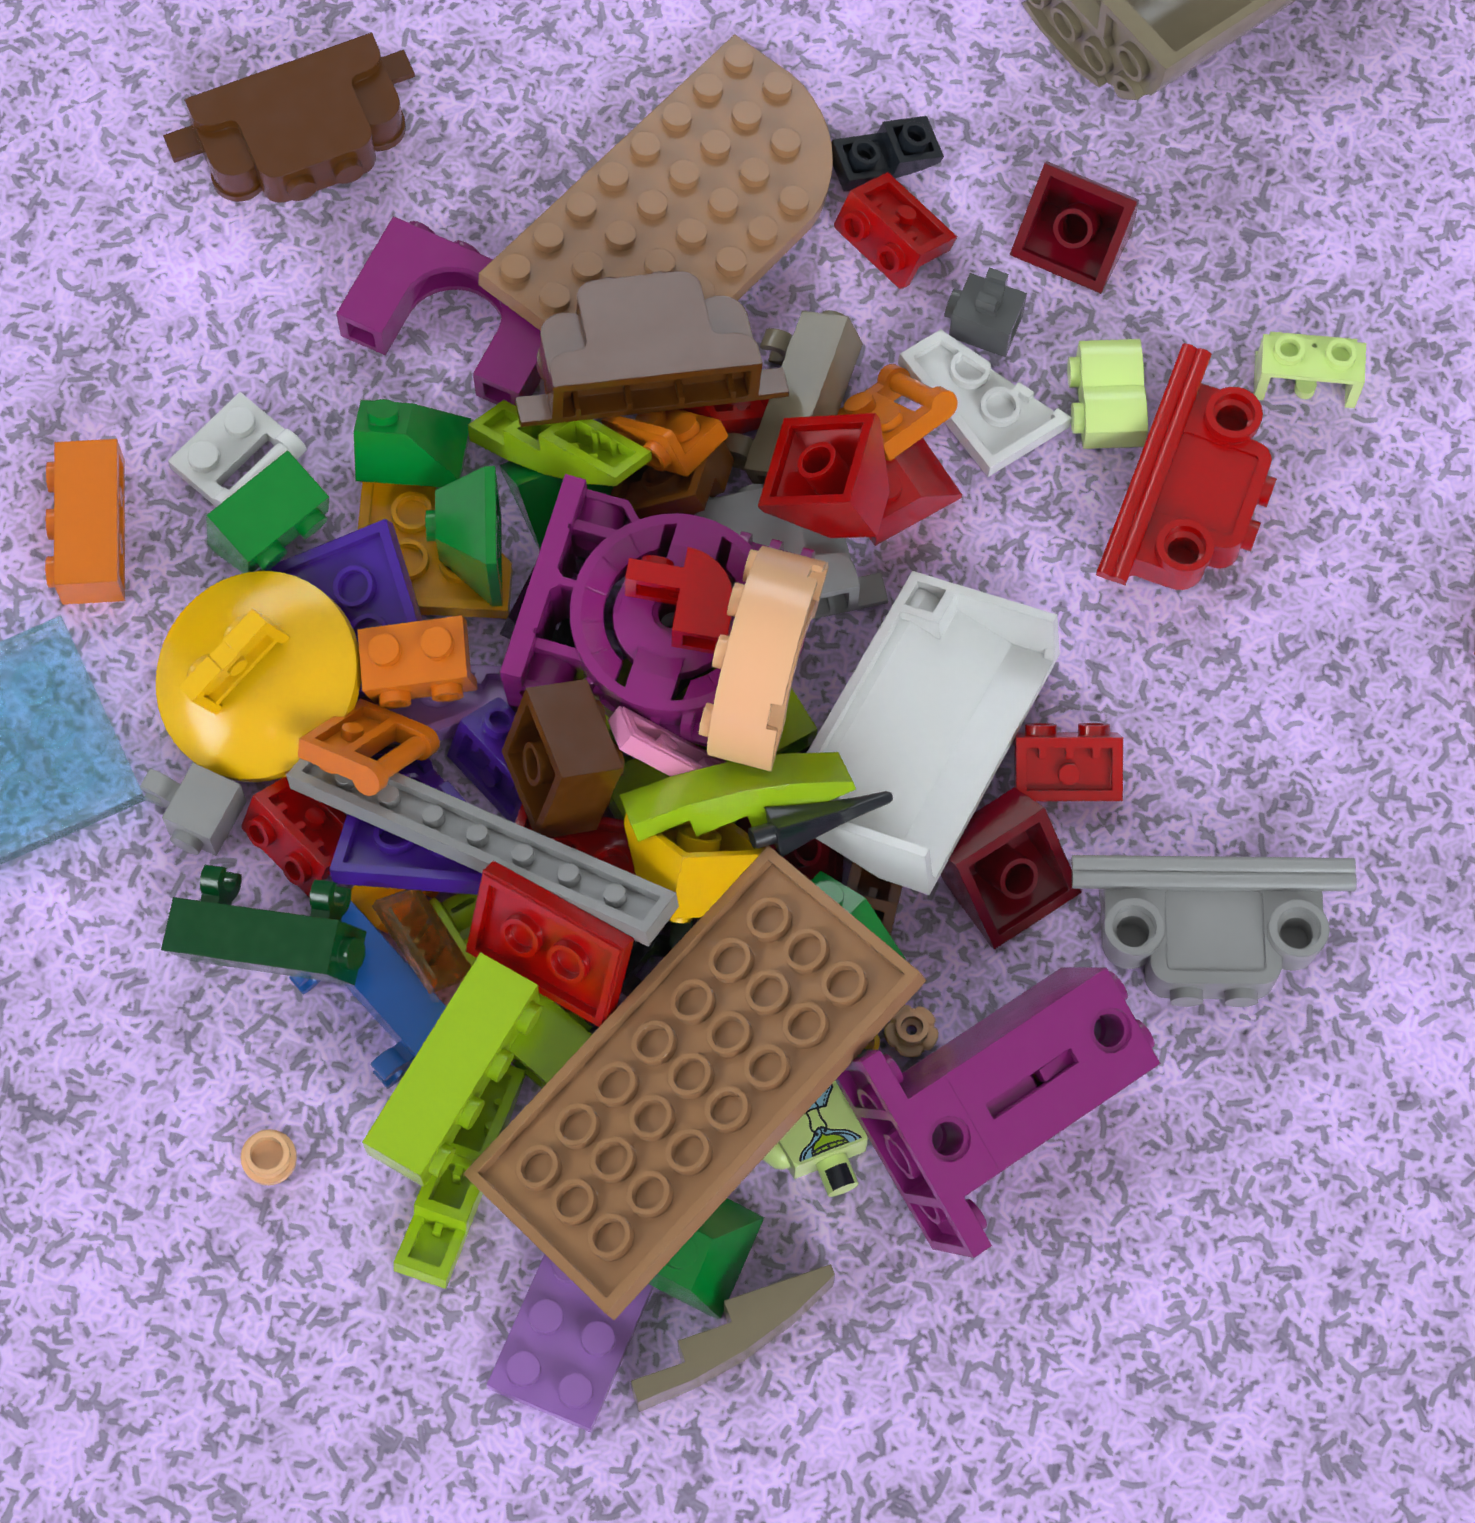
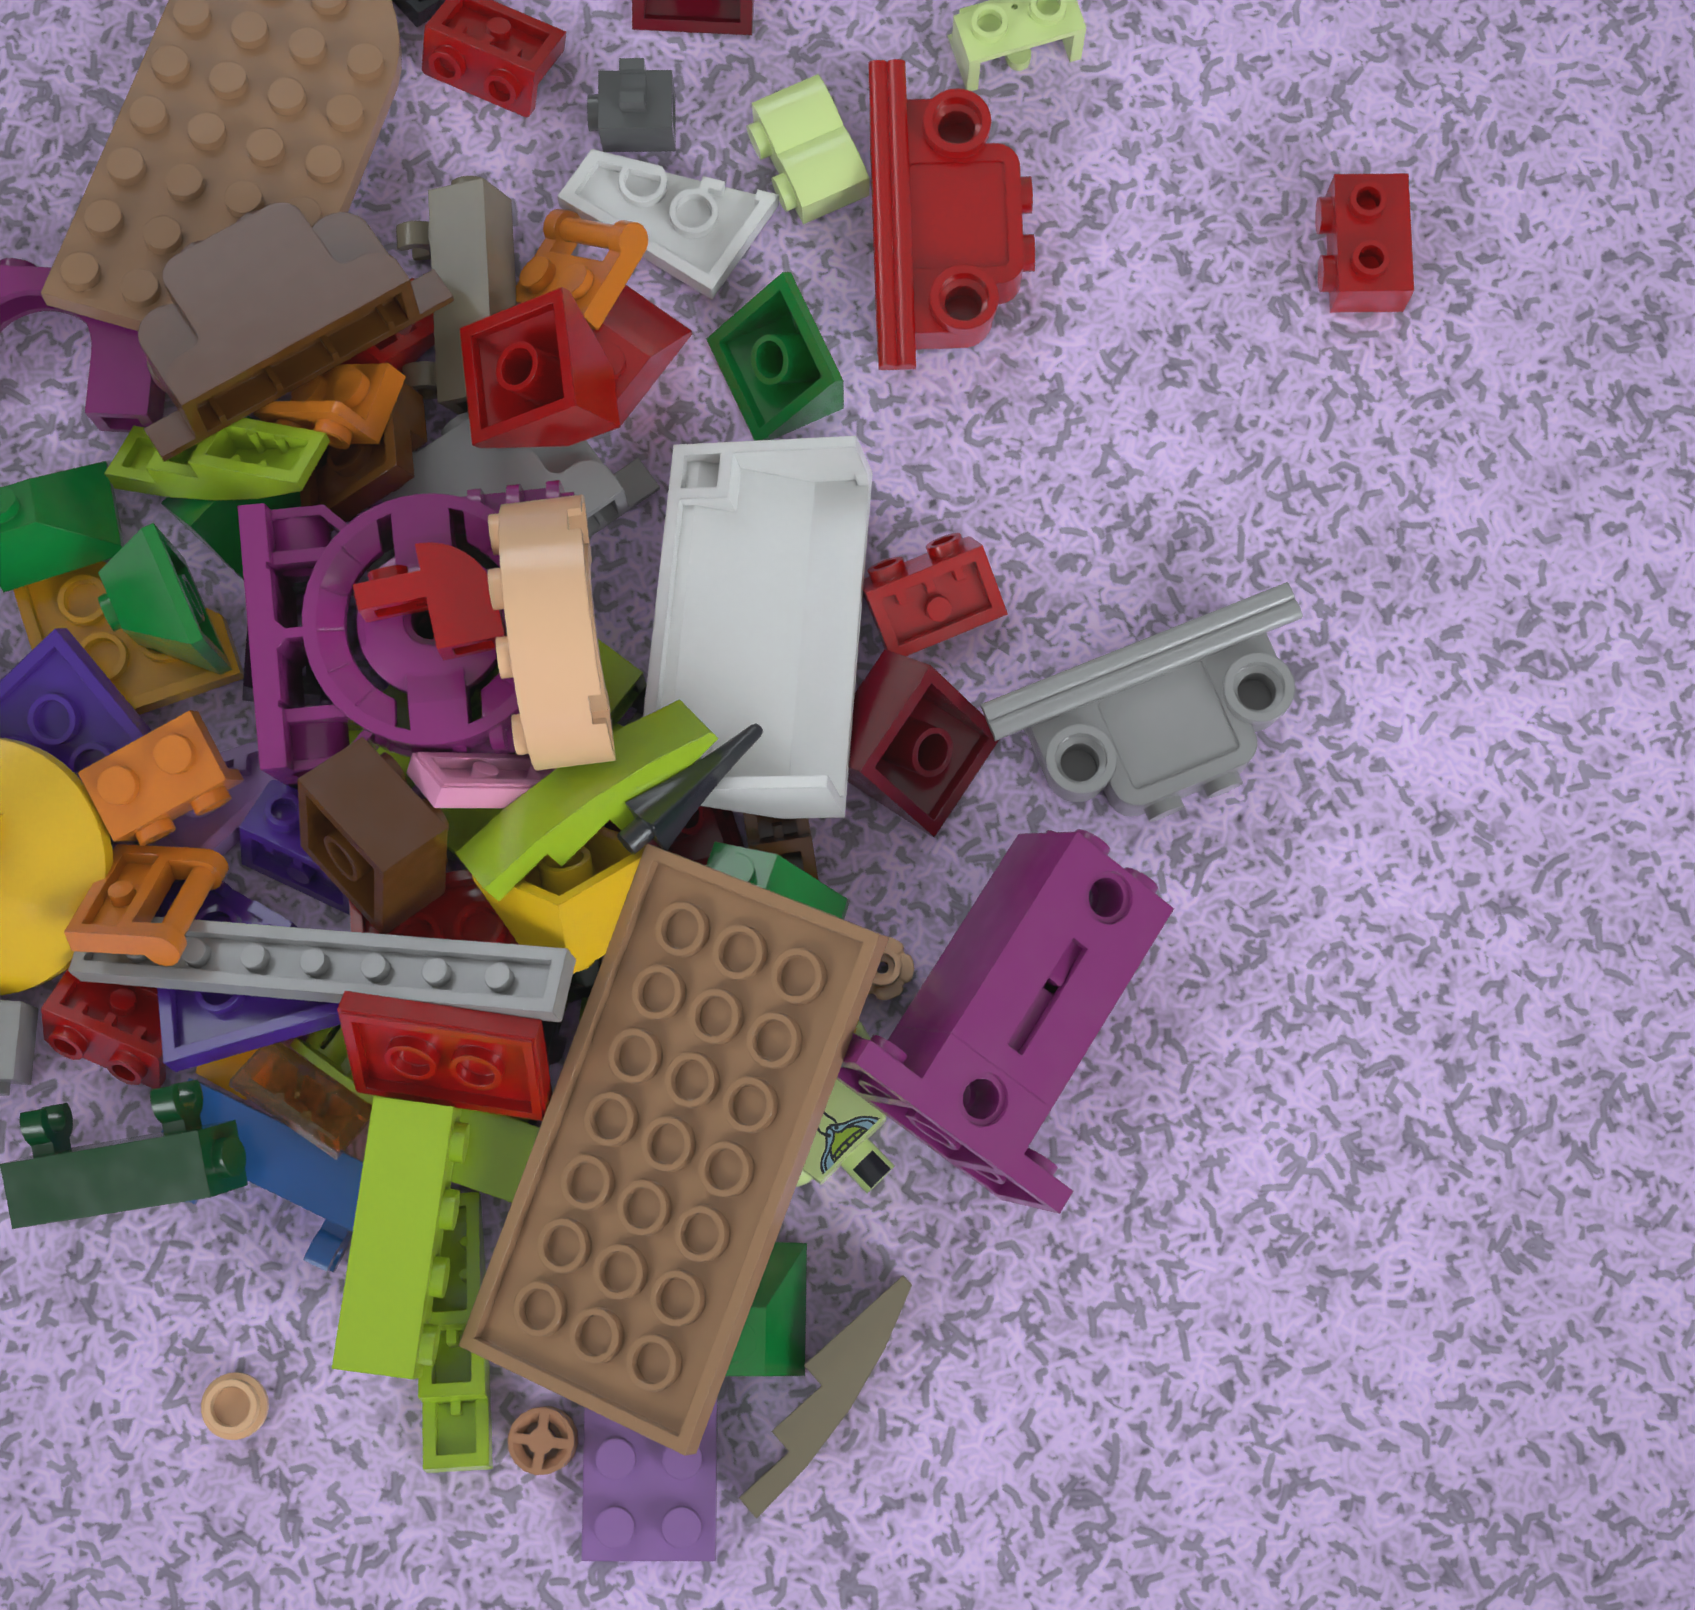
camera: 20 degrees left, 10 degrees up
(492, 1265) = (530, 1449): none -> nougat wheel
(1020, 541) = (777, 362): none -> green slope

